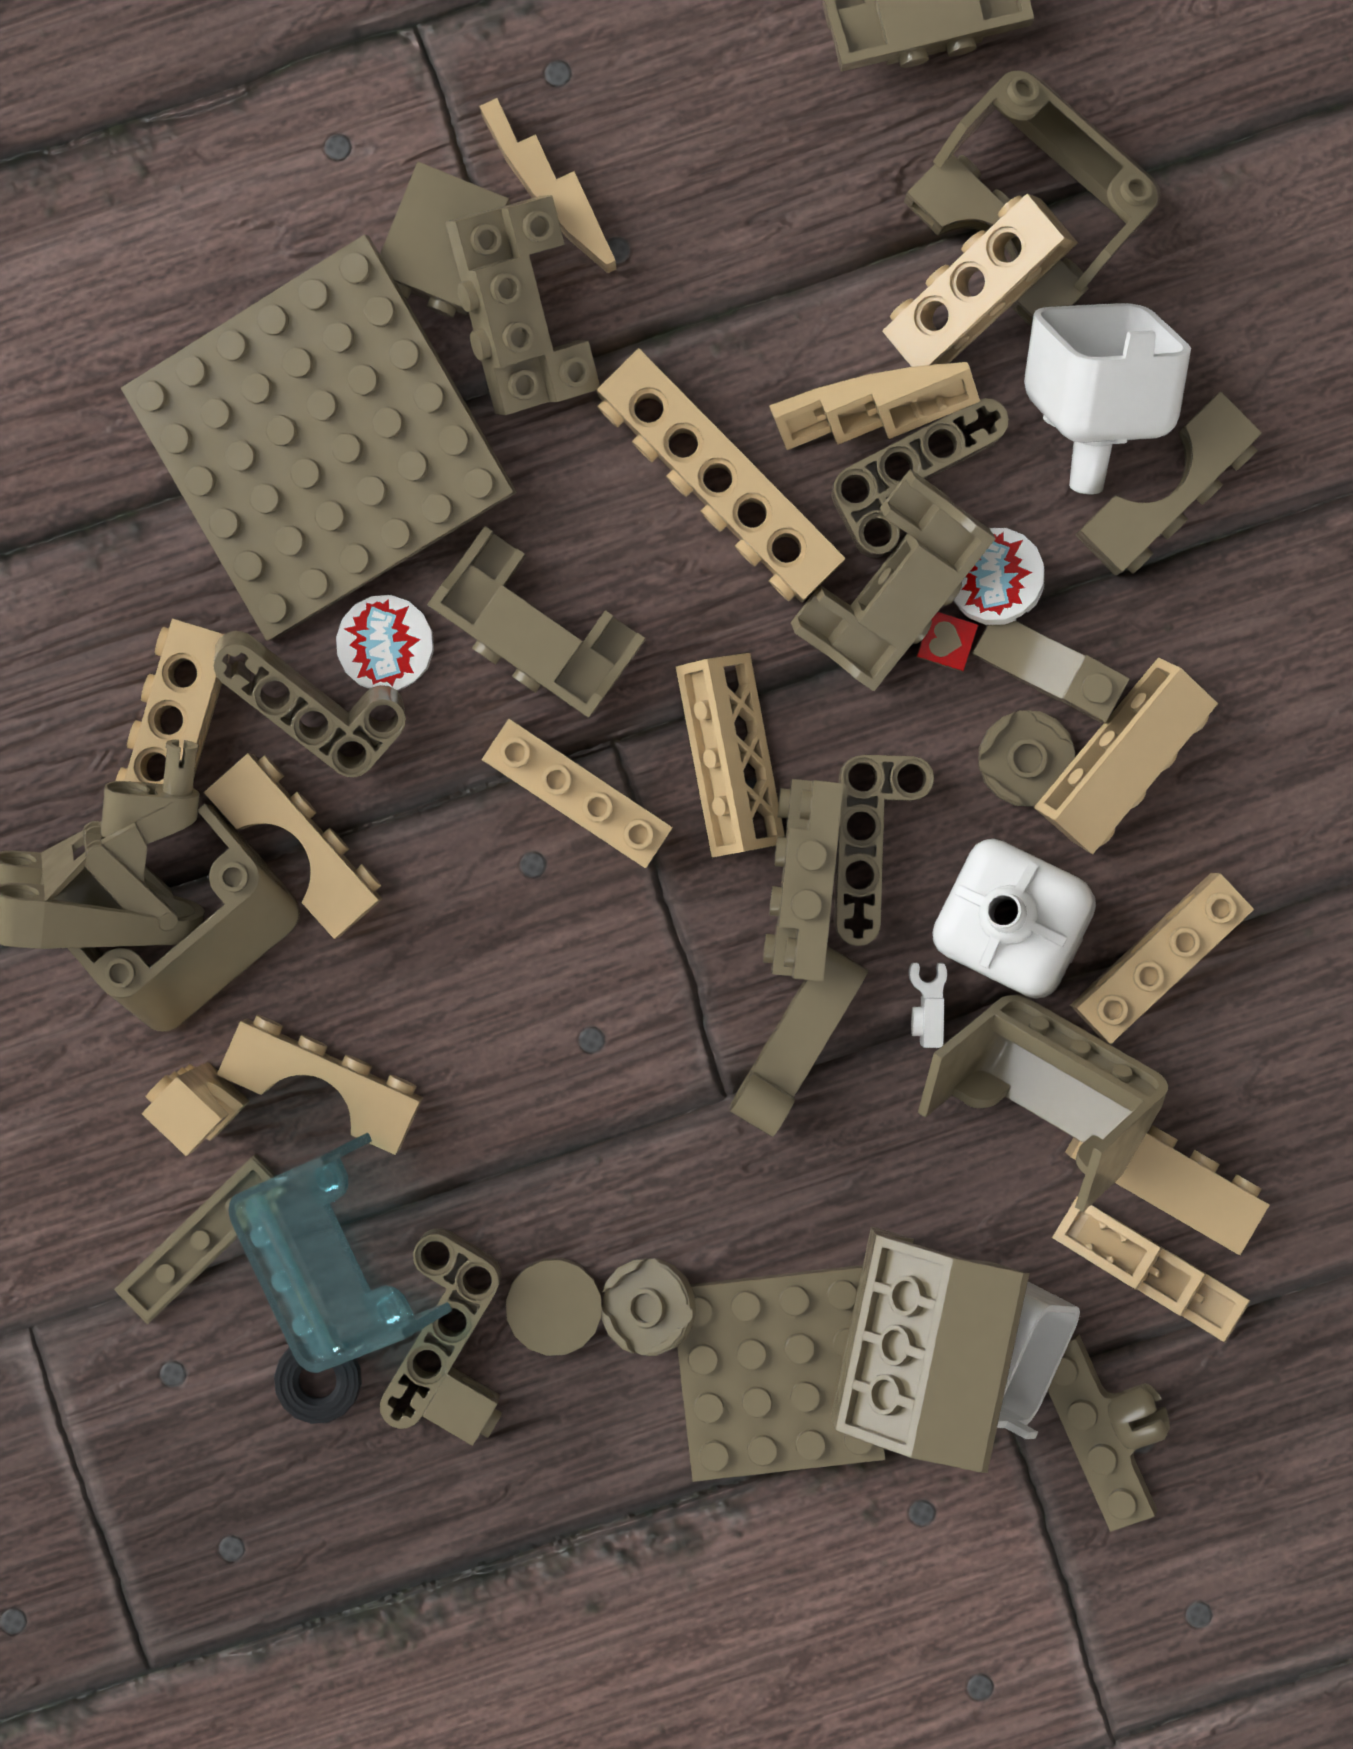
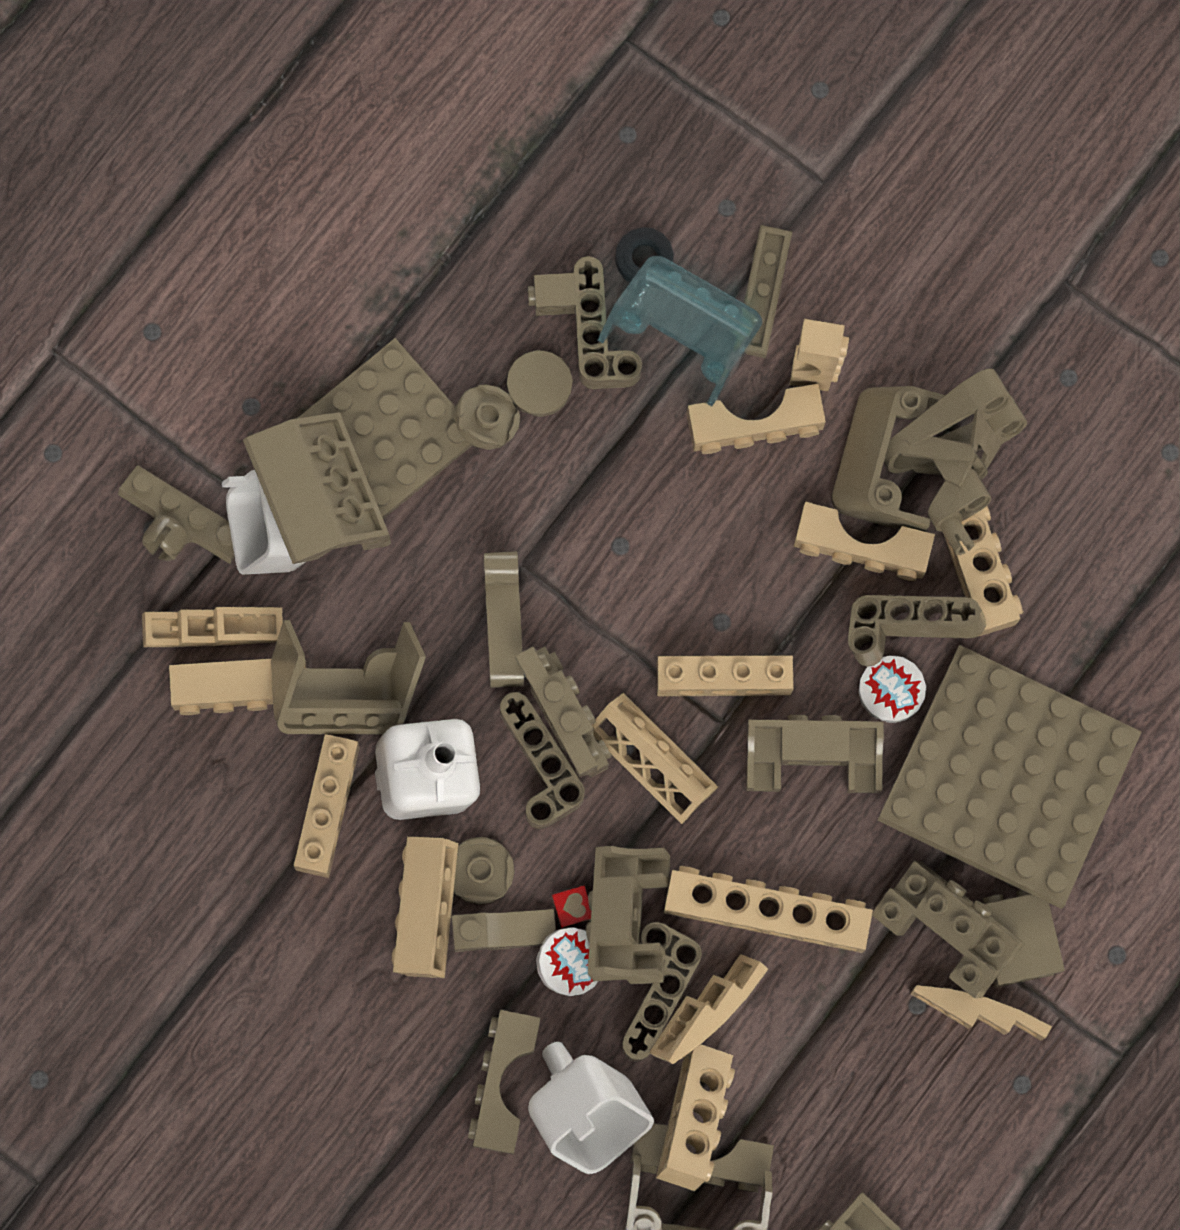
camera: 145 degrees right, 10 degrees down
(929, 1018) = (437, 683): white plate -> none

